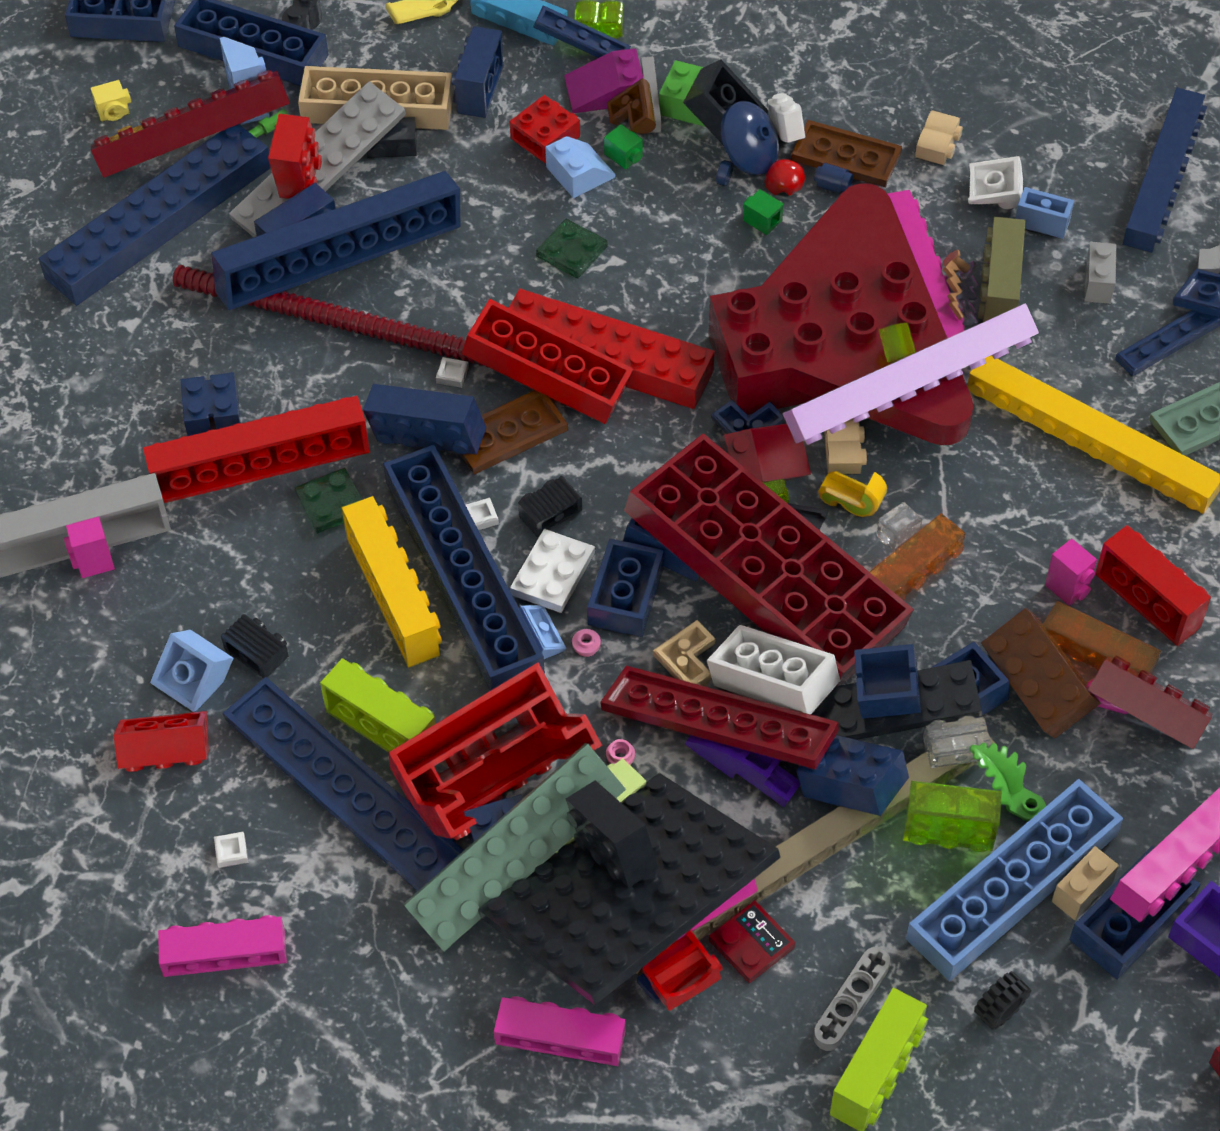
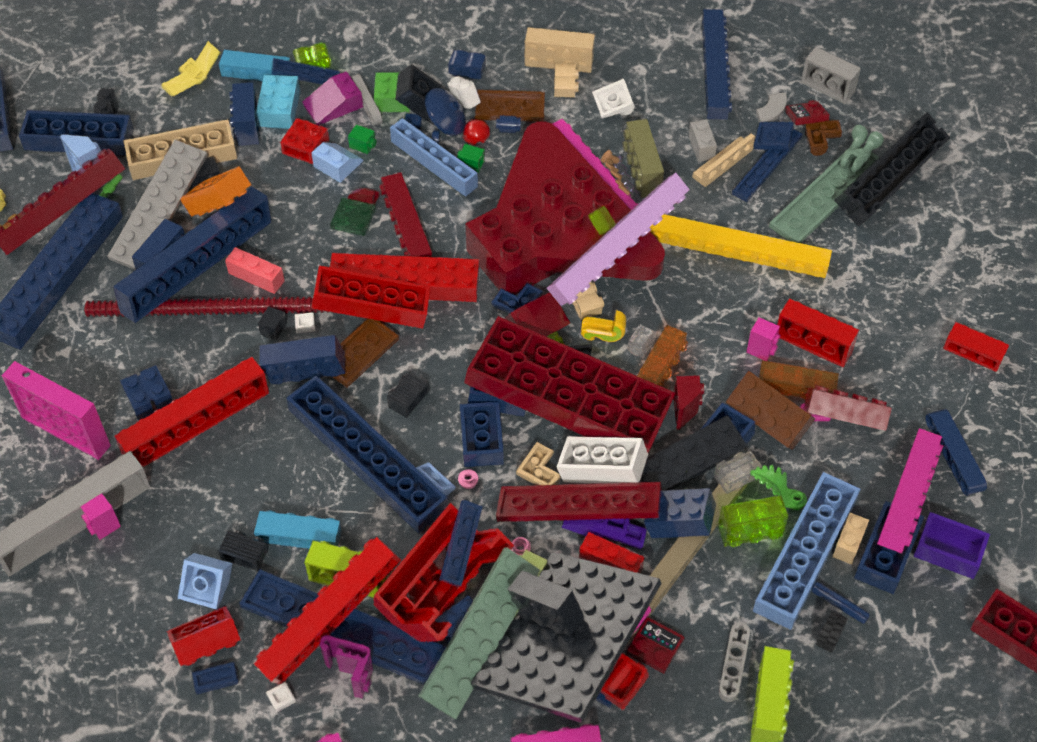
camera: 20 degrees left, 0 degrees up
(83, 394) = (56, 410): none -> dark pink piece
(157, 798) = (215, 678): none -> dark blue tile
(294, 155) = (145, 203): red brick -> none
(324, 754) = (327, 611): none -> red brick
(326, 497) = (255, 434): clear green plate -> none
(332, 640) = (296, 530): none -> dark azure brick
(336, 829) = (351, 659): none -> magenta piece
(392, 581) = (322, 477): yellow brick -> none
(395, 166) = (216, 192): none -> orange brick
(407, 360) = (272, 323): none -> black brick
(411, 284) = (255, 270): none -> coral brick
(483, 513) = (365, 411): white tile -> none
(530, 65) = (278, 101): none -> medium azure brick
(533, 721) = (461, 543): none -> dark blue plate
(552, 570) = (426, 437): white plate -> none
(598, 224) = (364, 195): none -> dark red brick
(636, 105) = (360, 108): reddish brown brick -> none
(639, 266) = (404, 216): none -> dark red brick
(702, 141) = (414, 120): none -> dark blue tile
(711, 196) = (434, 157): none -> medium blue brick
(733, 799) = (607, 553): none -> red brick
(808, 81) = (467, 64): none -> dark blue brick
(889, 681) = (681, 445): dark blue piece -> none
(930, 85) = (549, 47): none -> tan brick
(930, 620) = (687, 399): none -> dark red slope
(1036, 966) = (840, 602): none -> dark blue axle
(1045, 212) = (655, 110): medium blue brick -> none
(1122, 309) = (724, 160): none -> tan fence

